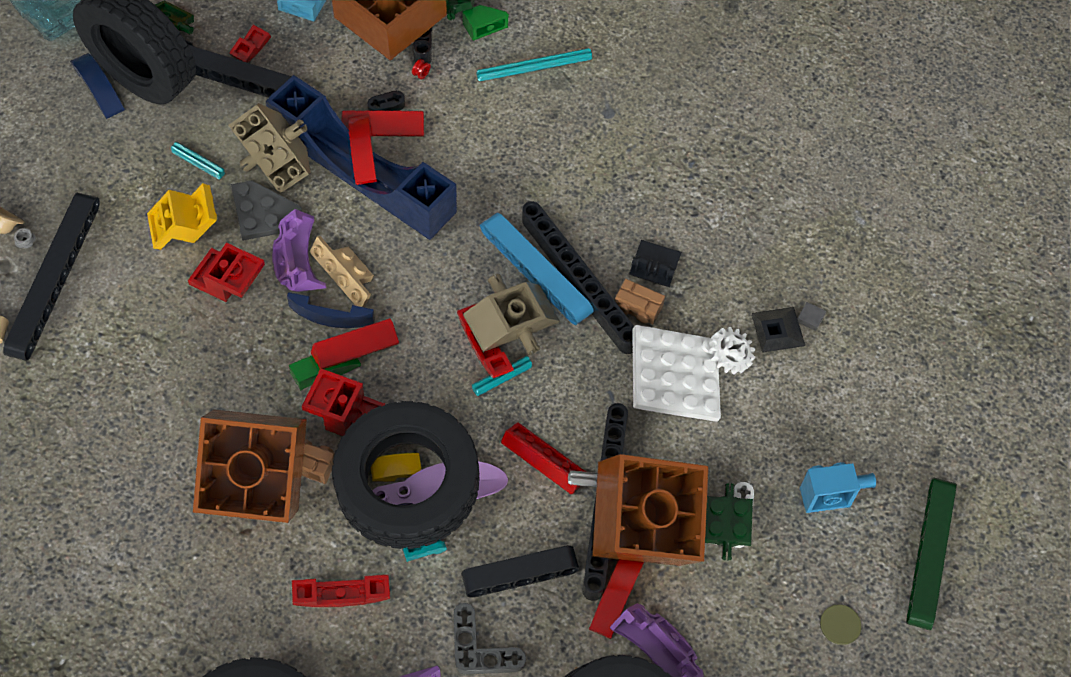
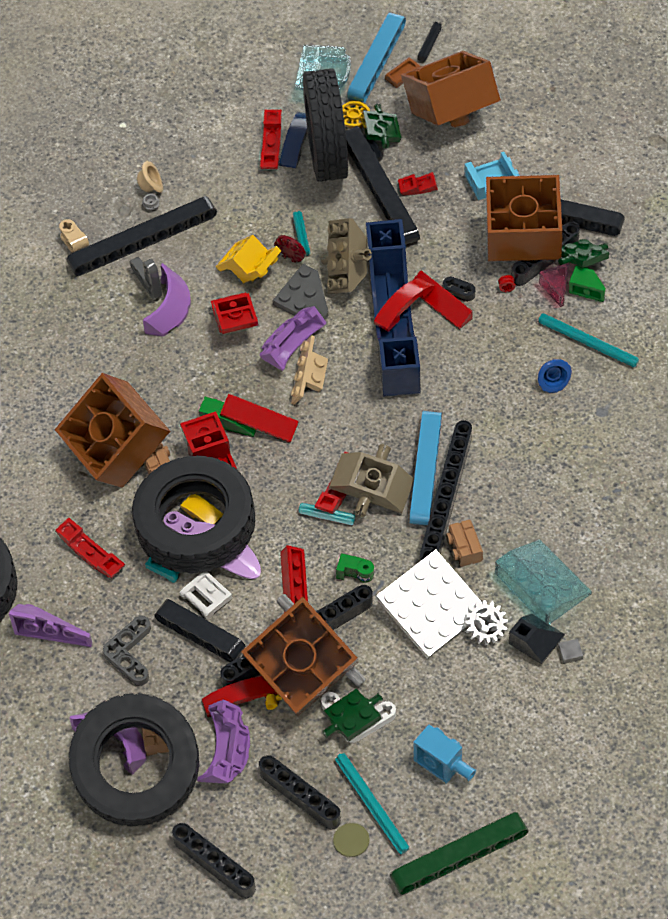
camera: 55 degrees right, 5 degrees down
(75, 102) = (271, 139): none -> red slope
(114, 307) = (148, 276): none -> dark grey beam
(162, 313) = (174, 307): none -> medium lavender windscreen
(210, 177) = (290, 248): none -> dark red wheel
(329, 317) = (278, 403): dark blue slope -> none
(462, 37) = (555, 282): none -> clear pink slope
(487, 528) = (211, 590): none -> white plate
(546, 111) = (554, 375): none -> blue hat
(580, 398) = (355, 567): none -> green leg
(647, 573) = (271, 701): none -> yellow hand
(655, 263) = (507, 529): black hinge -> none
(728, 282) = (541, 580): none -> clear light blue slope
(772, 619) = (302, 800): none -> black beam
(822, 578) = (372, 803): none -> teal axle

